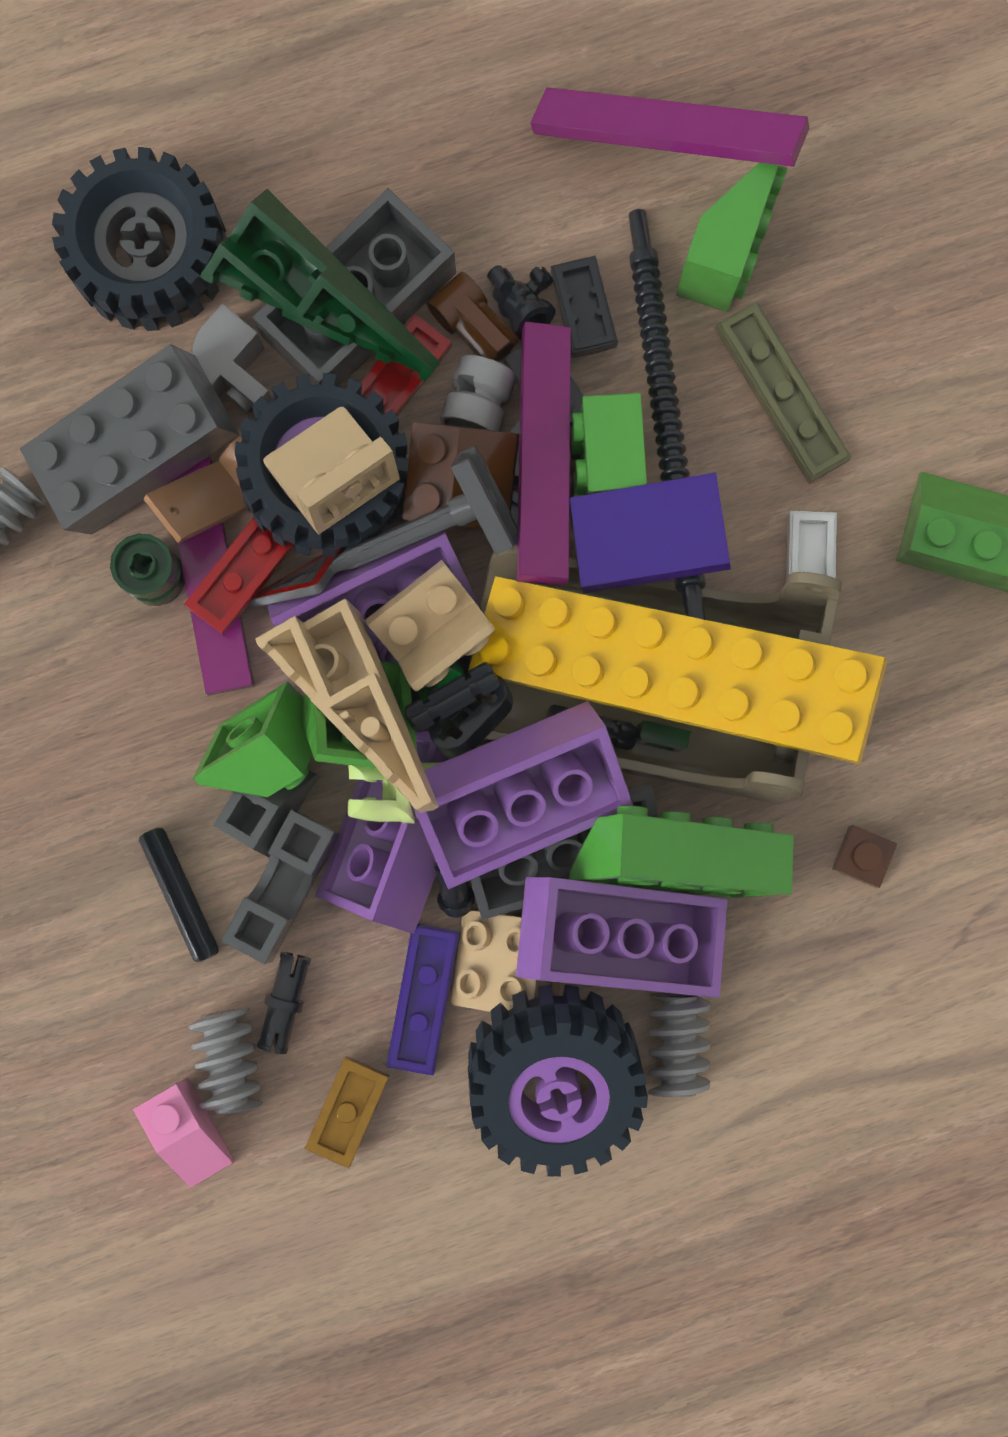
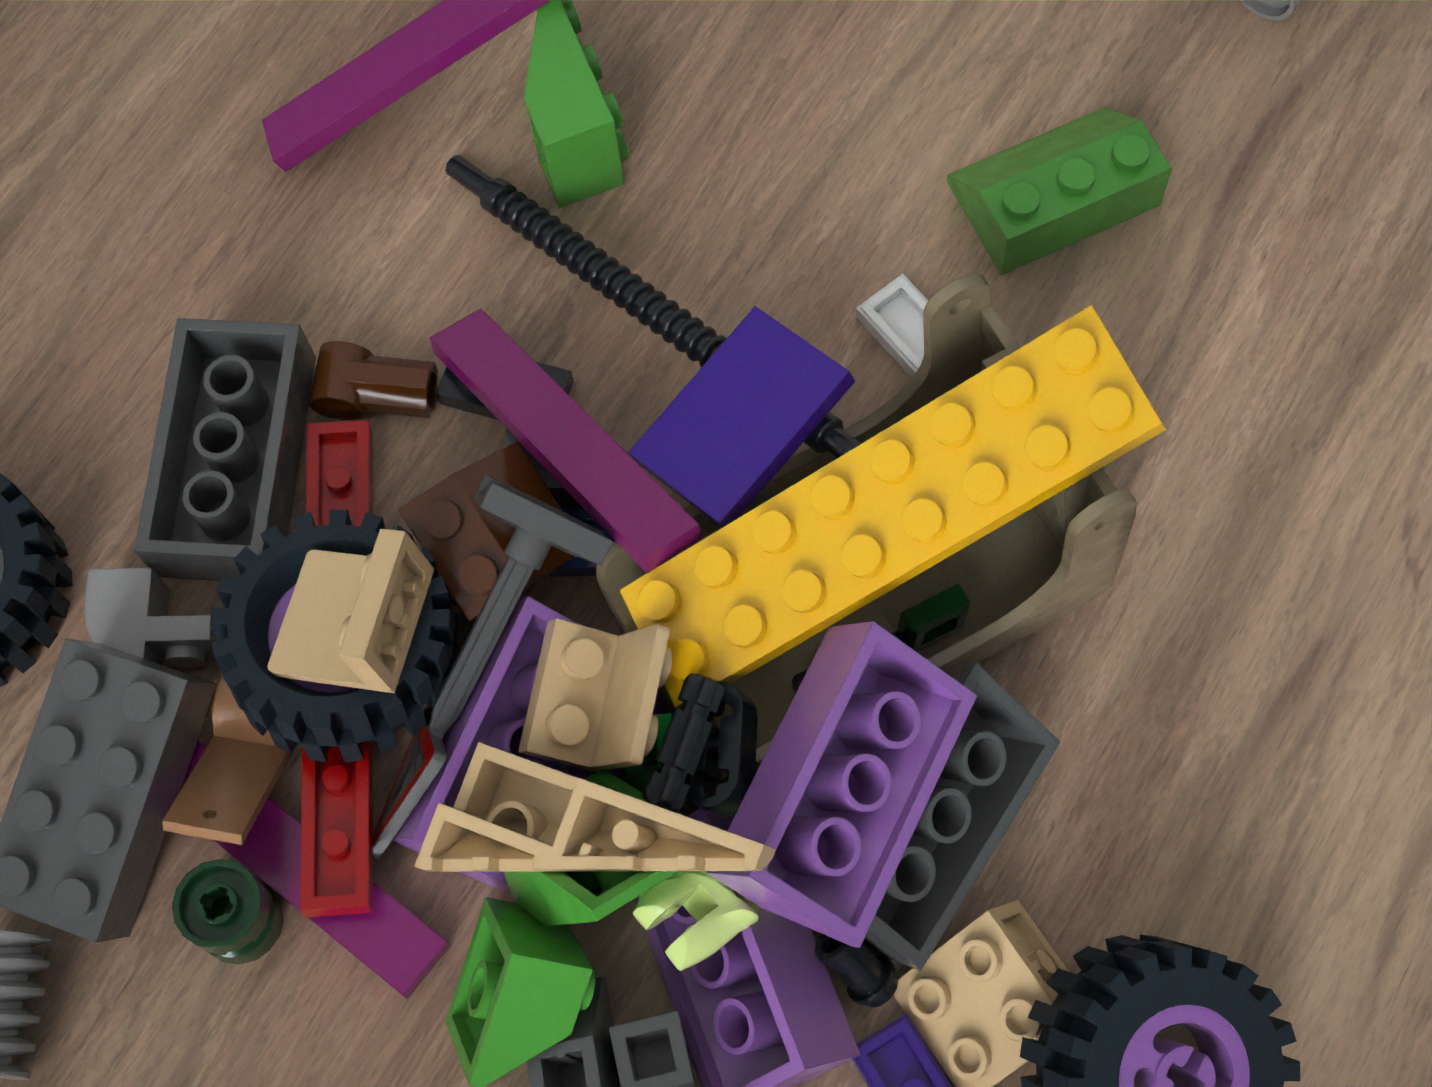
camera: 35 degrees left, 15 degrees down
(286, 266) = (135, 469): dark green wedge -> none
(480, 391) = (437, 437): light grey wheel -> none
(519, 300) = (403, 329): black piece -> none
(584, 306) = (474, 280): black plate -> none
(609, 443) = (619, 374): bright green brick -> none
(621, 937) = (1082, 853): medium lavender brick -> none
(680, 1045) = (1248, 921): light grey piece -> none
(686, 855) = (1070, 708): bright green slope -> none
(782, 392) = (747, 210): olive tile -> none
(864, 856) = (1243, 573): reddish brown plate -> none

